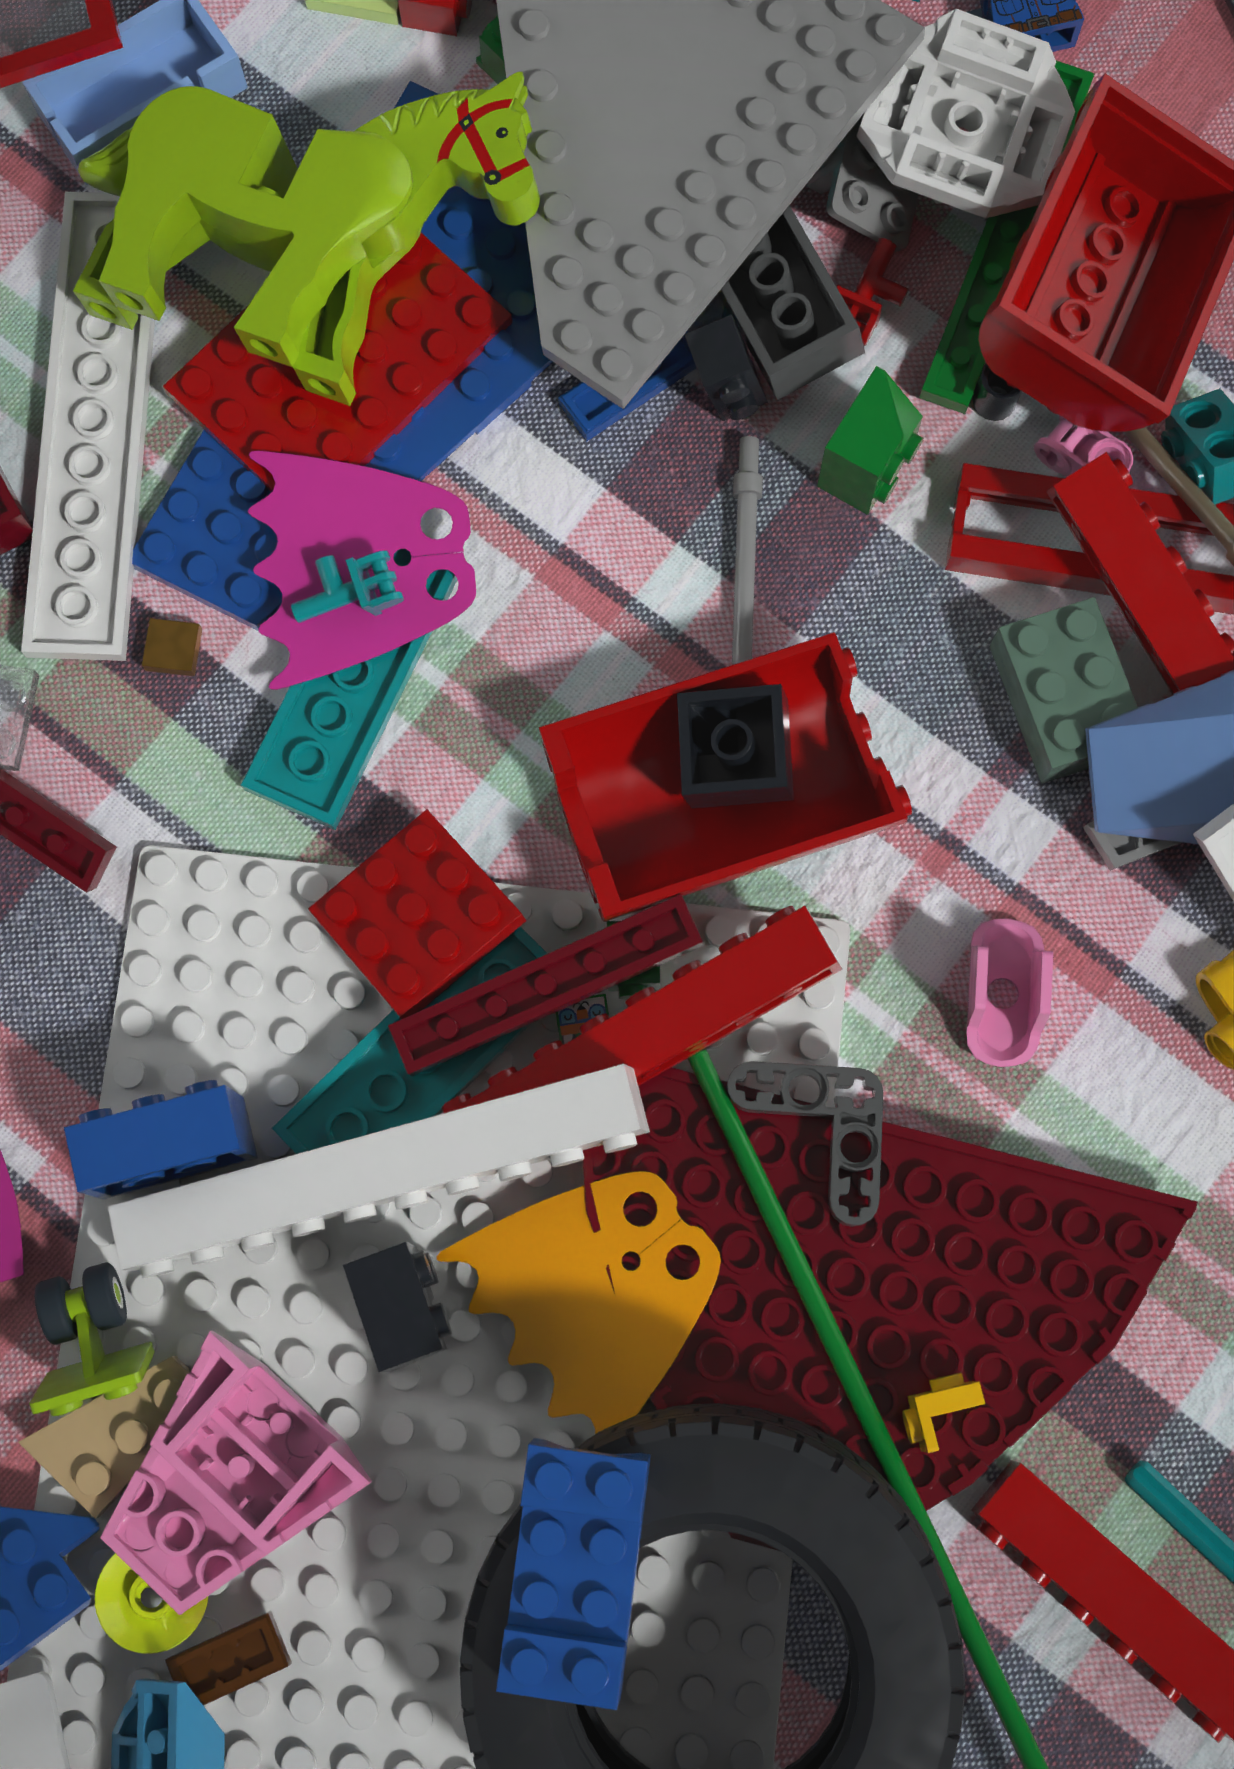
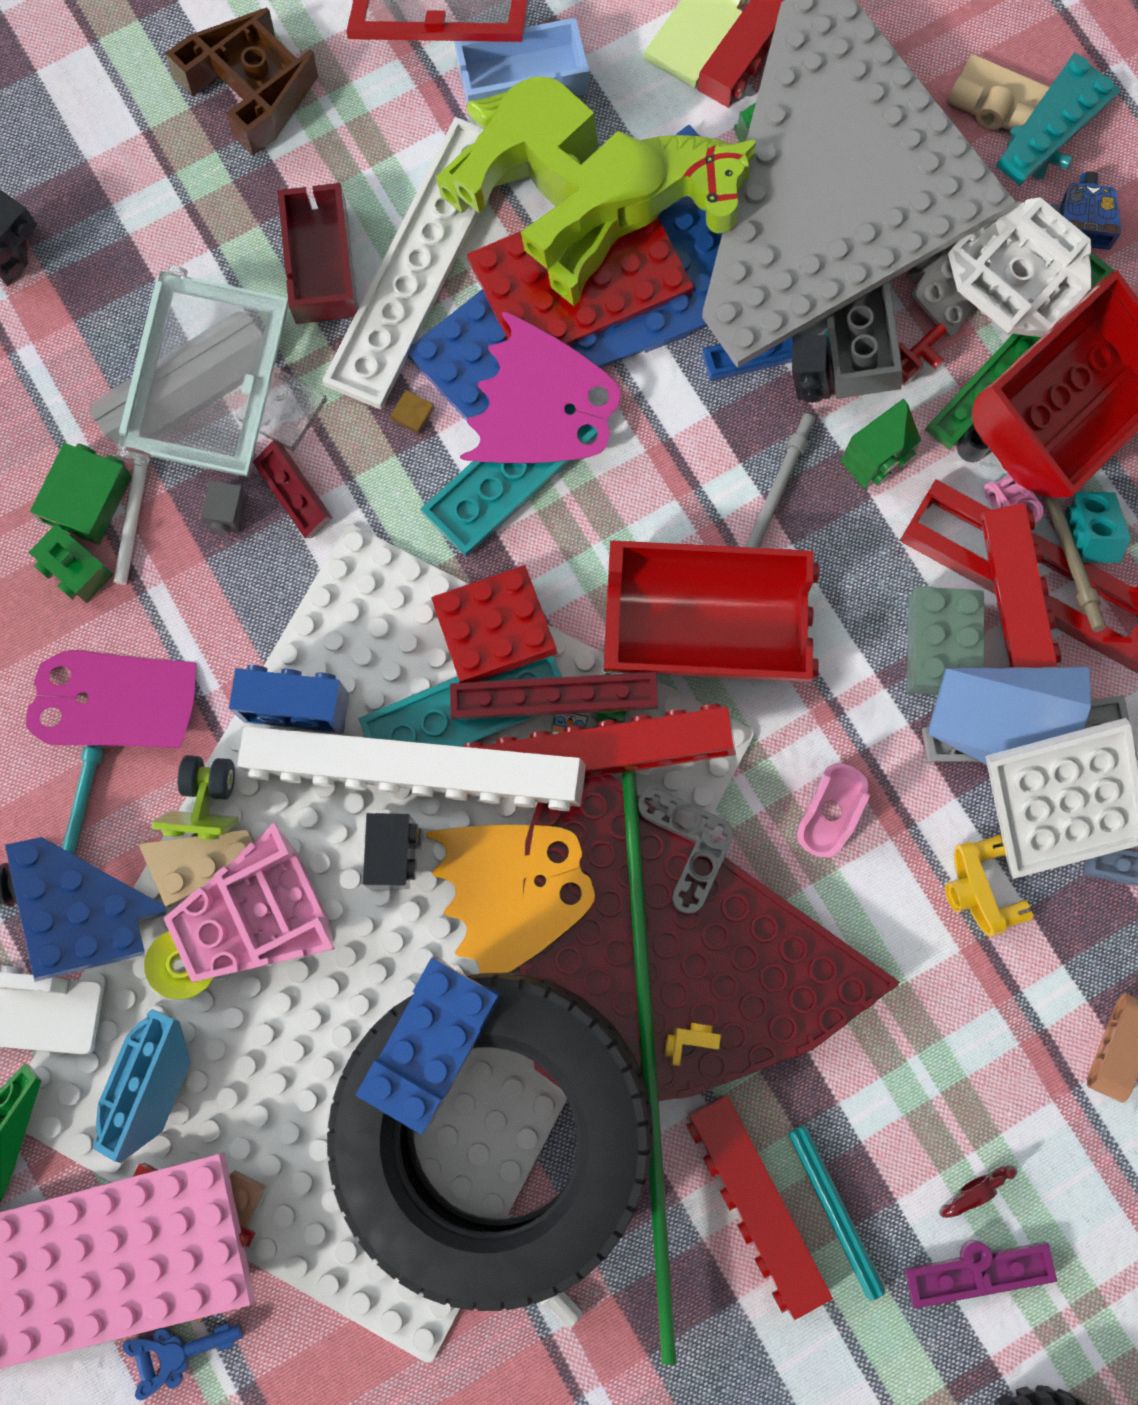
camera: 20 degrees right, 0 degrees up
(231, 1659) = (212, 1020): reddish brown plate -> none
(360, 588) = (537, 417): teal arm -> none
(735, 746) = (725, 597): black slope -> none

